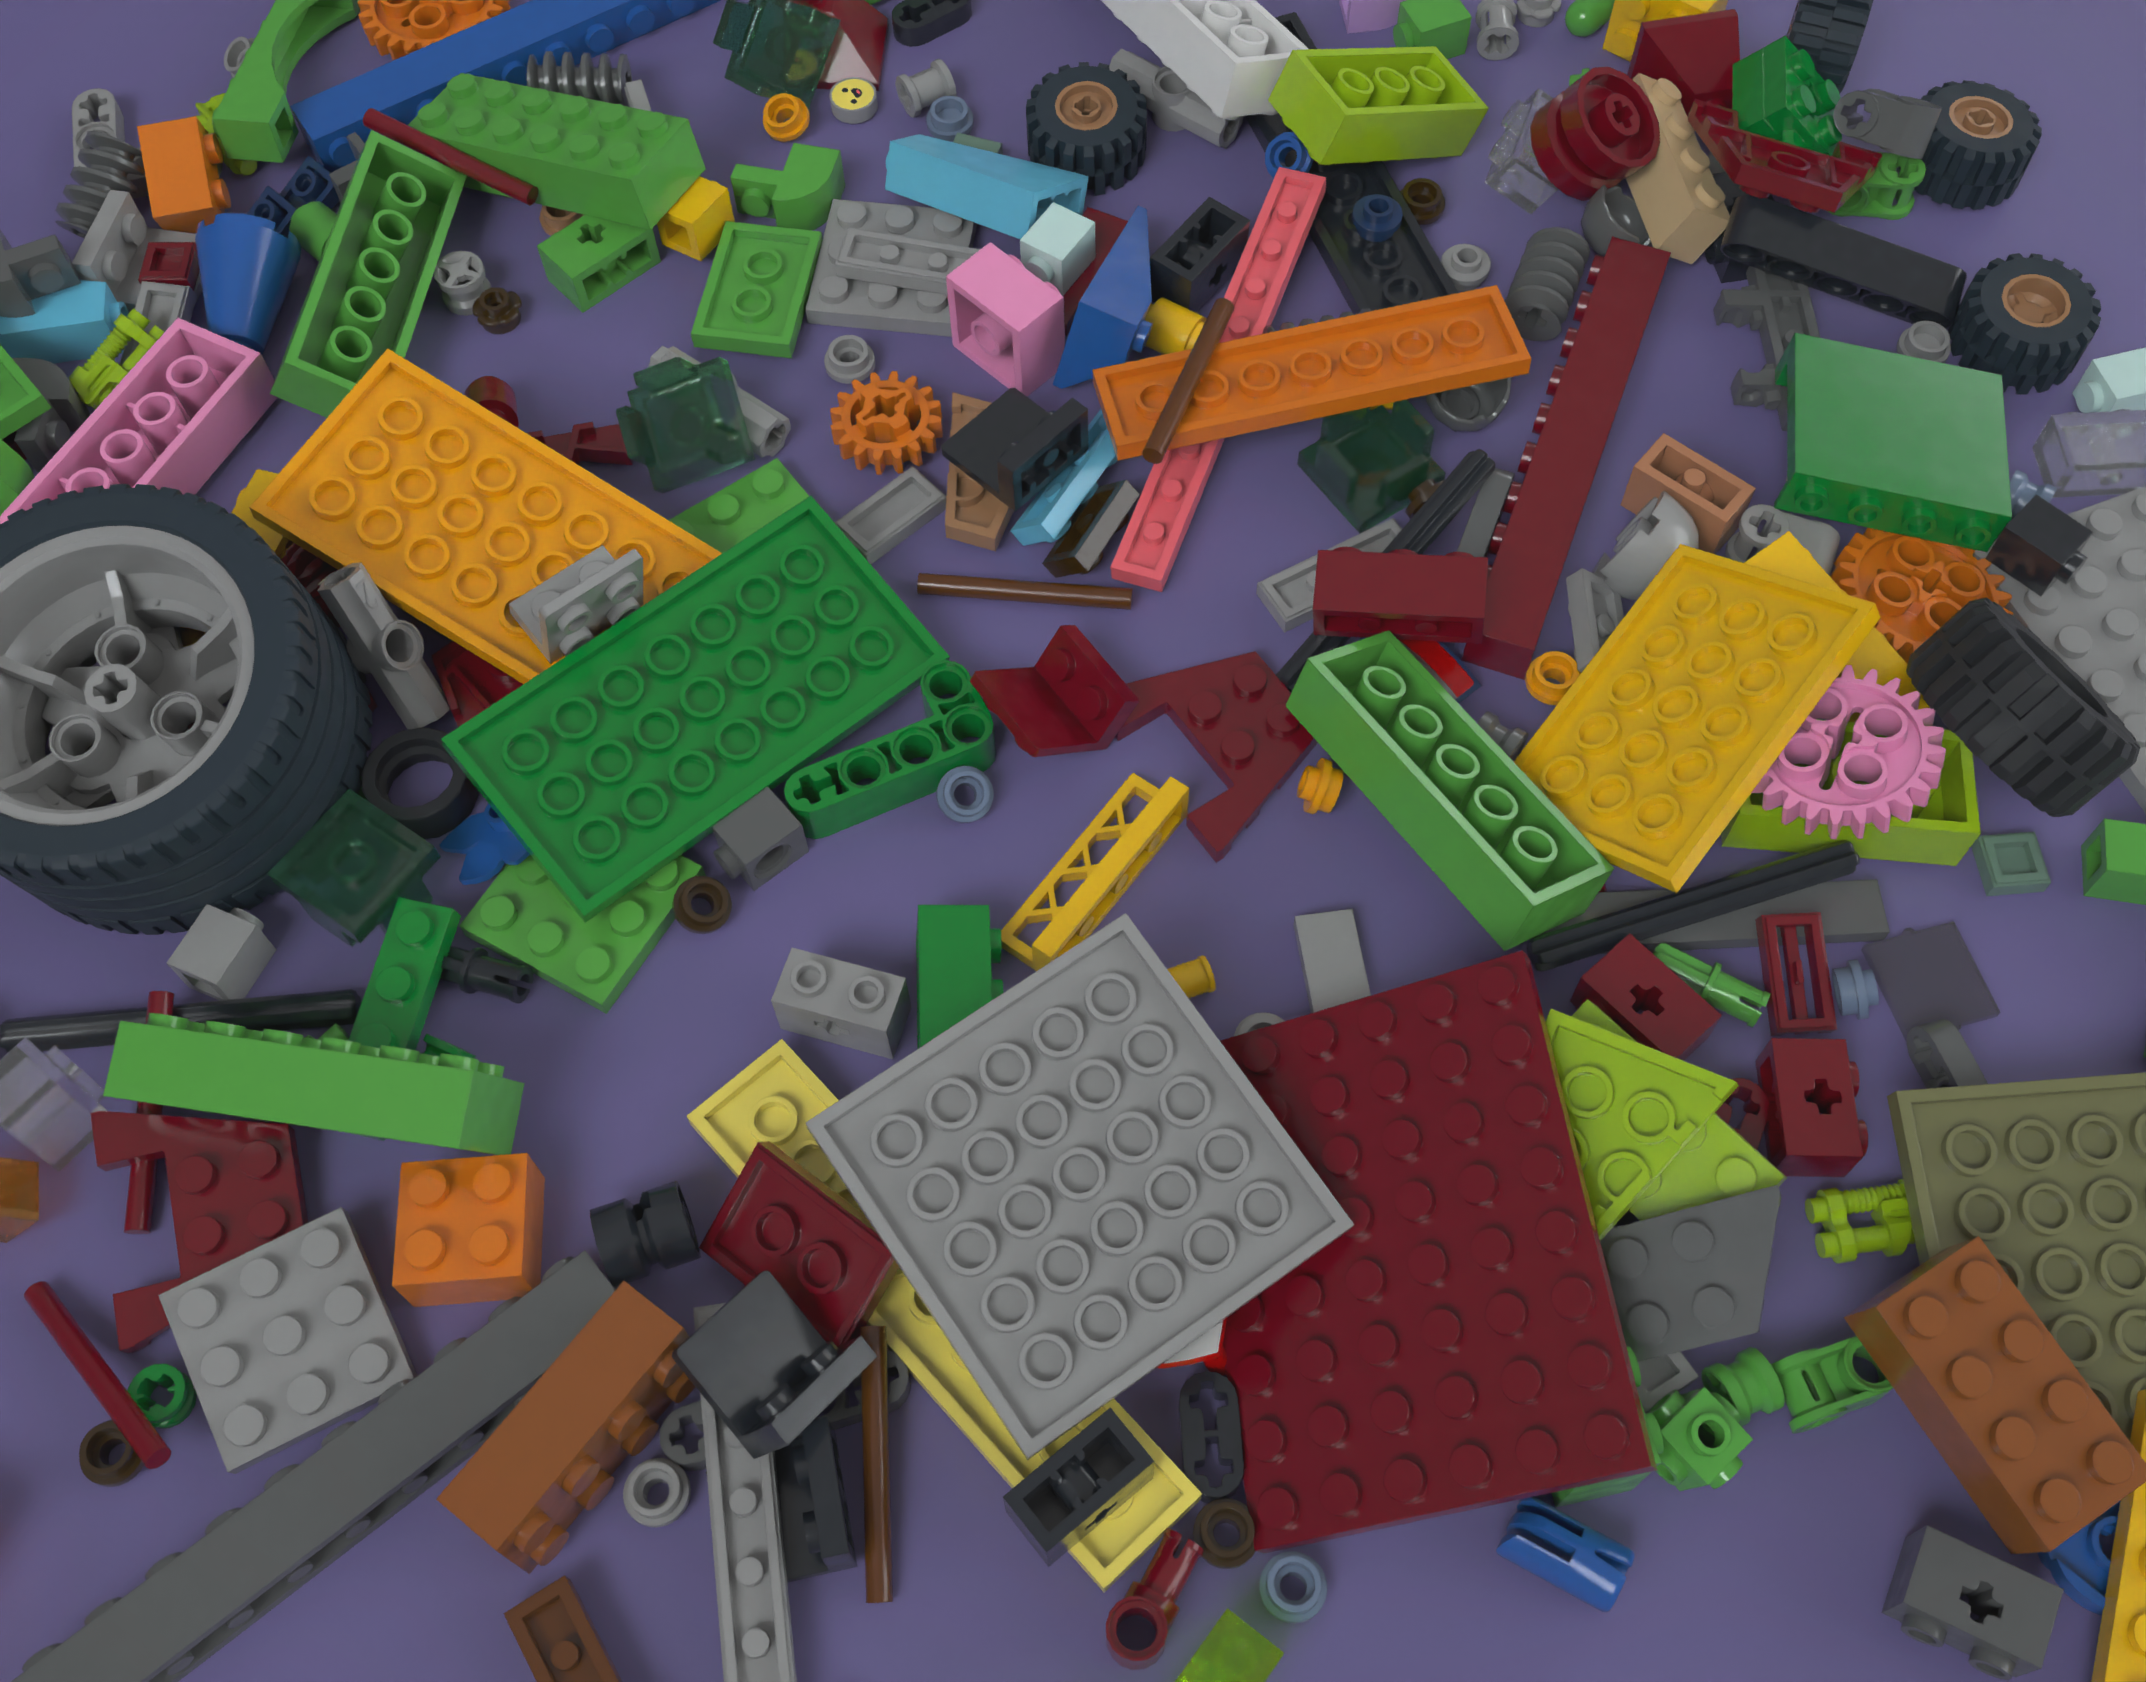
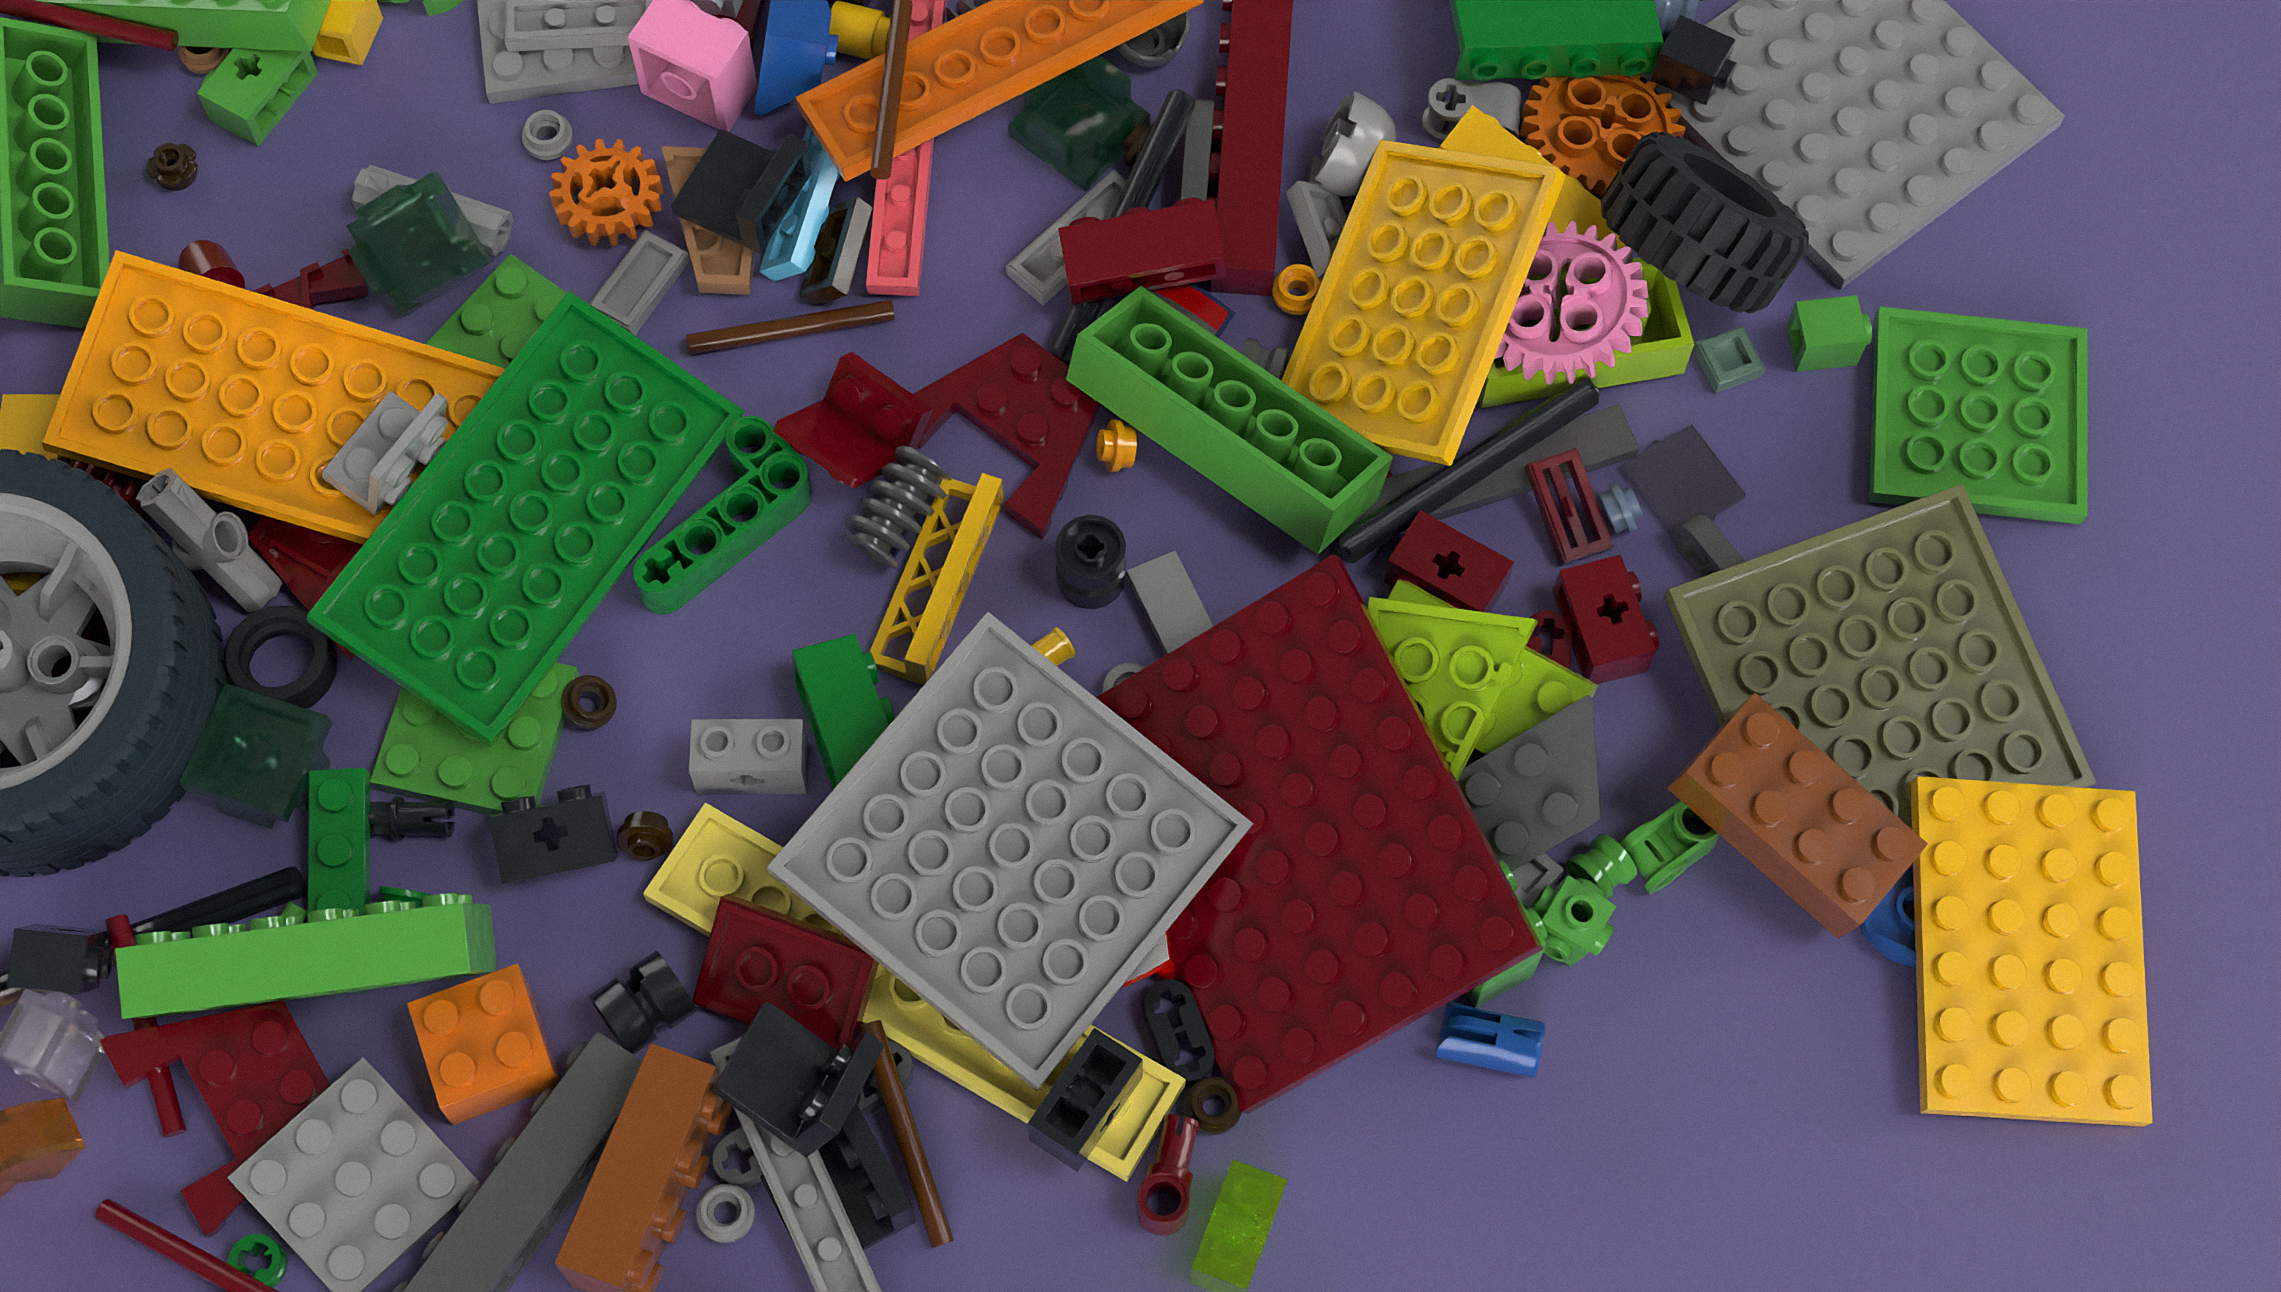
camera: 20 degrees left, 5 degrees up
(70, 1015) = (59, 958): none -> black brick
(222, 953) = (156, 867): light grey brick -> none
(461, 280) = (118, 138): light grey wheel -> none
(486, 845) = (367, 699): blue plate -> none
(580, 1035) = (526, 855): none -> black brick
(710, 1056) = (645, 835): none -> dark brown plate
(757, 289) = (431, 82): bright green plate -> none
(759, 840) = (622, 628): dark grey brick -> none
(977, 782) = (810, 527): sand blue plate -> none
(1073, 787) = (895, 505): none -> dark grey piece
(1258, 896) = (1090, 561): none -> black wheel
(1299, 1566) = (1283, 1115): sand blue plate -> none
(1702, 487) = (1379, 74): nougat brick -> none
(1714, 985) = (1501, 535): bright green axle -> none
(1843, 1243) = (1657, 726): lime piece -> none
(2011, 1604) = (1841, 975): dark grey brick -> none

